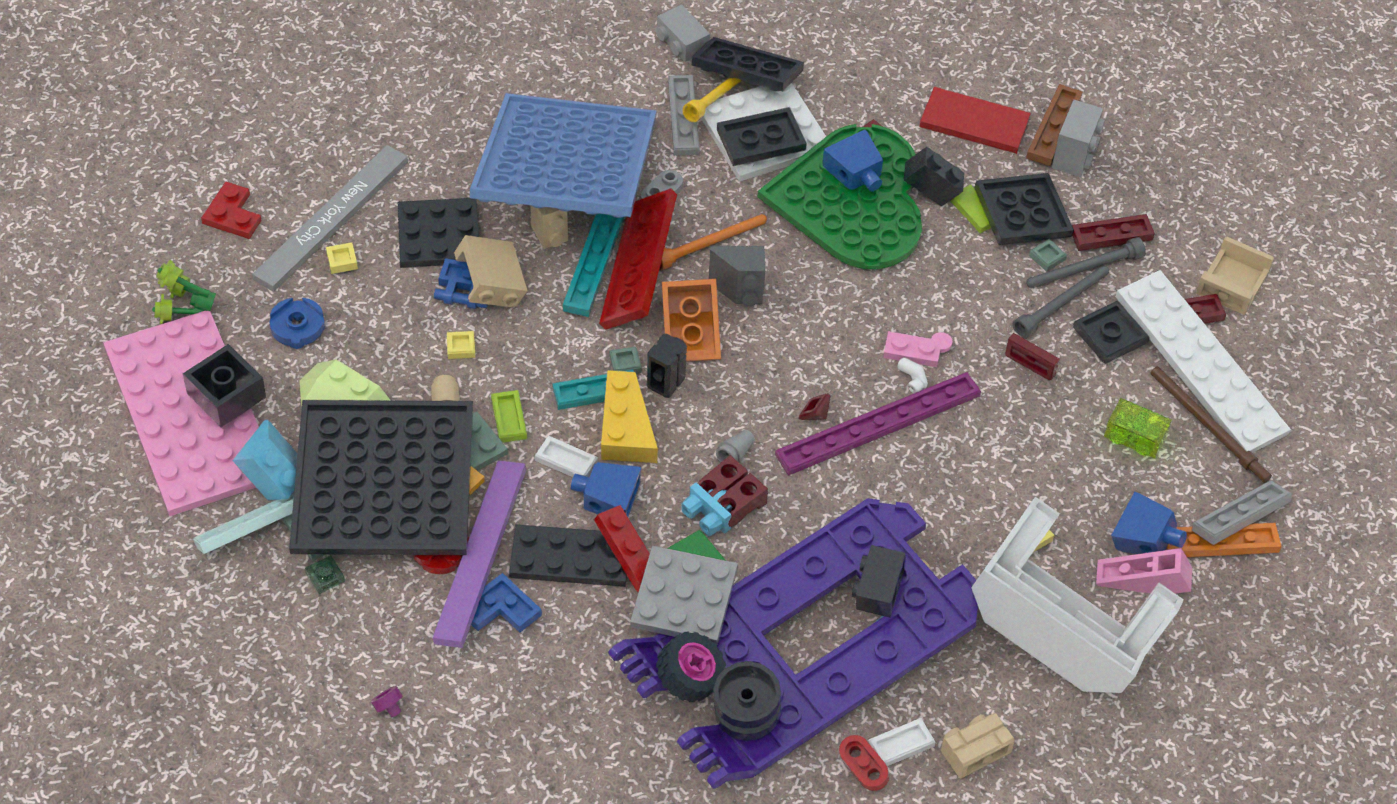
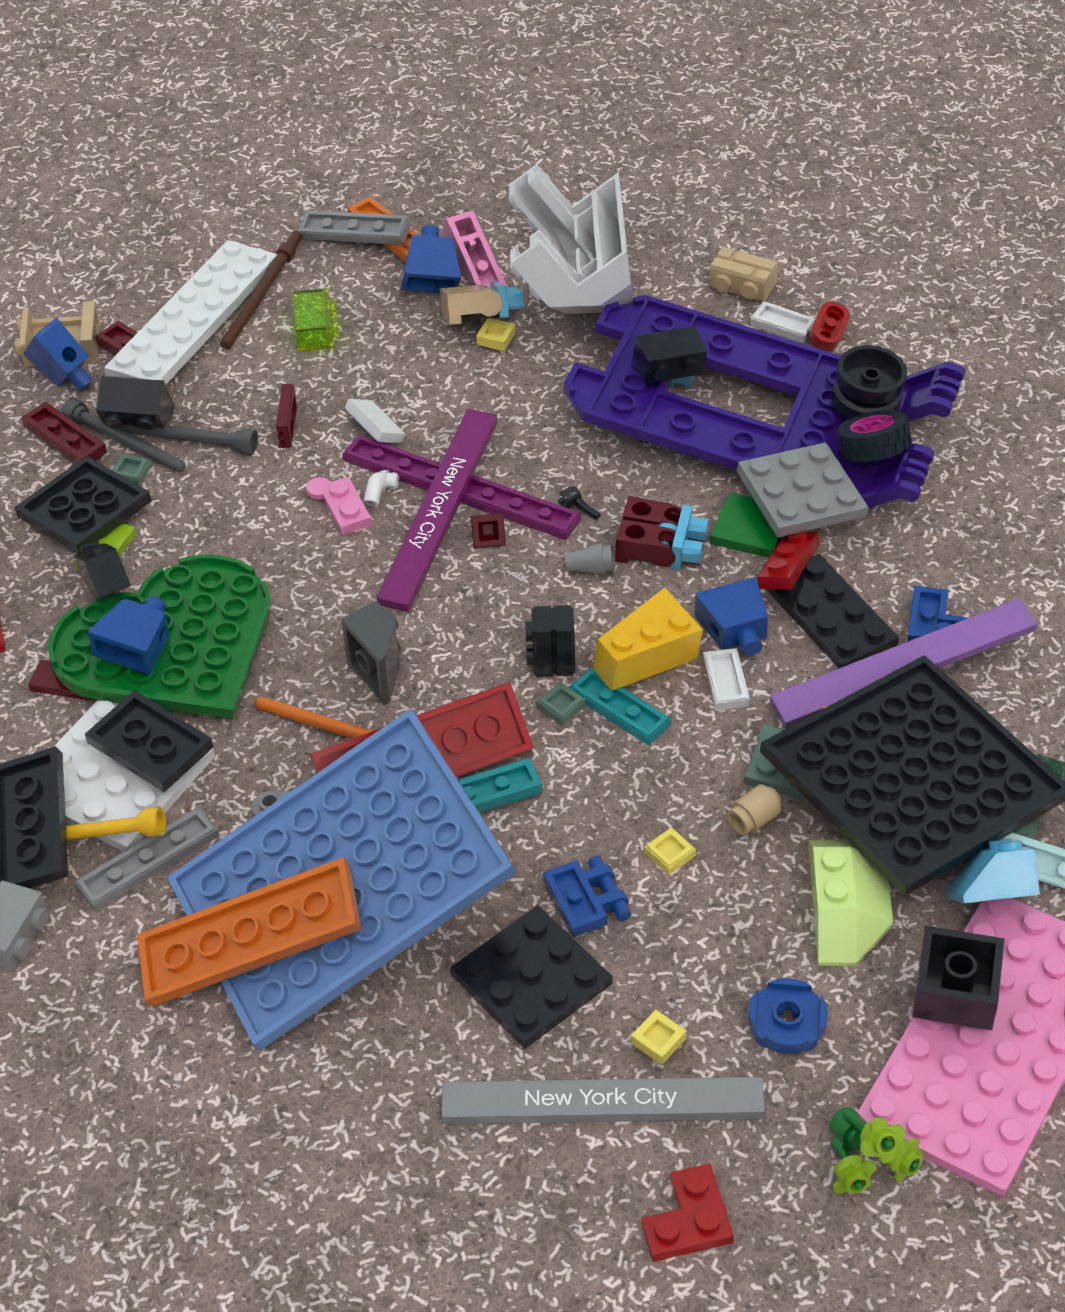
camera: 120 degrees left, 5 degrees down
(493, 271) = (556, 859): tan panel -> none
(508, 416) = (720, 753): lime tile -> none
(567, 107) = (248, 932): none -> orange plate
(692, 316) = (460, 668): orange slope -> none
(809, 478) = (572, 497): none -> black hand
(861, 391) = (437, 511): none -> magenta tile
(986, 405) = (375, 421): none -> white tile
(1072, 533) = (479, 299): none -> tan hips
(1102, 269) = (134, 402): none -> black slope
(1111, 332) = (204, 384): black plate -> none
(1194, 251) = (59, 355): none -> blue torso

